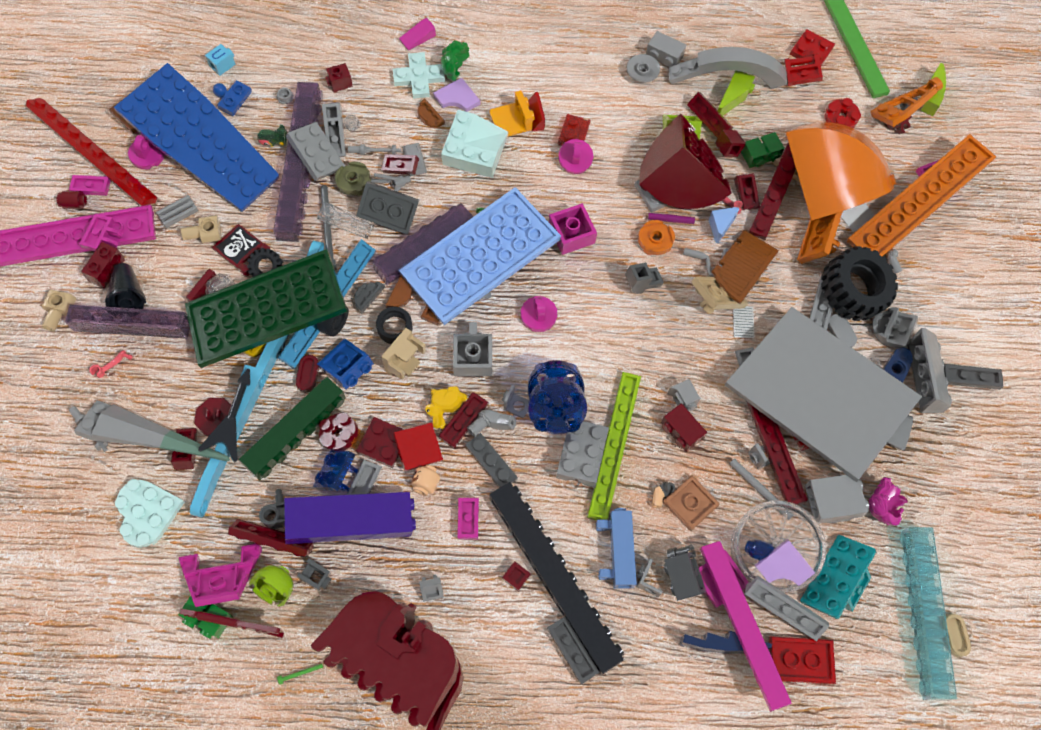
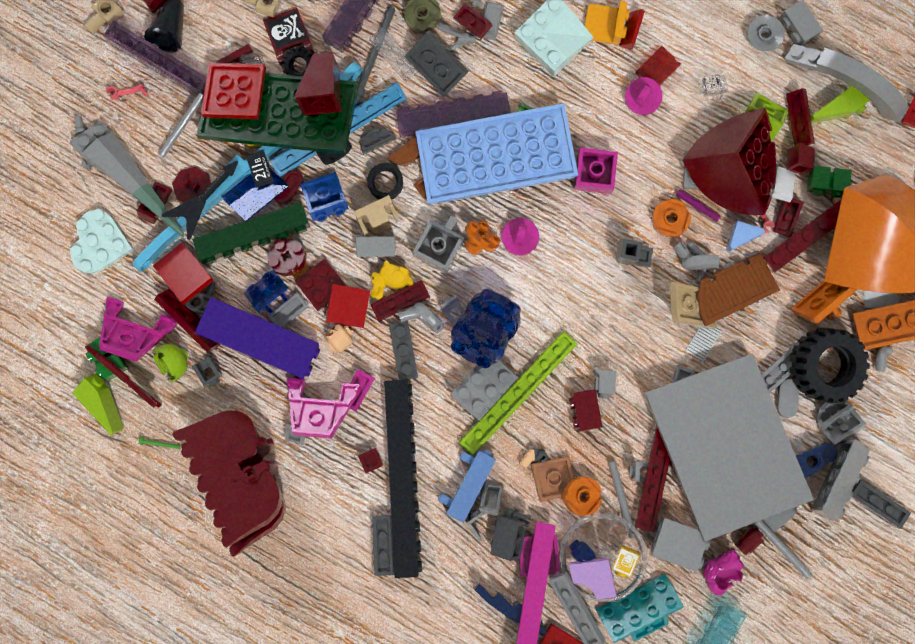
camera: 30 degrees right, 15 degrees up
(178, 366) = (181, 125): none -> light grey piece
(215, 310) = (233, 91): none -> red plate
(218, 662) = (99, 402): none -> lime slope
(245, 495) = (183, 273): none -> red tile
(273, 367) = (259, 168): none -> black sticker
(278, 391) = (248, 200): none -> clear blue piece
(295, 264) = (320, 86): none -> dark red slope
(415, 380) = (375, 246): none -> light grey hinge
(445, 558) = (318, 416): none -> wing
(505, 330) = (480, 238): none -> orange plate
(627, 124) = (713, 87): none -> clear head
(648, 549) = (491, 499): none -> light grey tile
(699, 260) = (695, 262): none -> light grey arm
(719, 509) = (572, 494): none -> orange plate
(731, 168) = (784, 184): none -> white tile
(803, 535) = (626, 561): none -> yellow brick
(890, 464) = (749, 540): none -> dark red brick
(923, 455) = (783, 549): none -> light grey bar

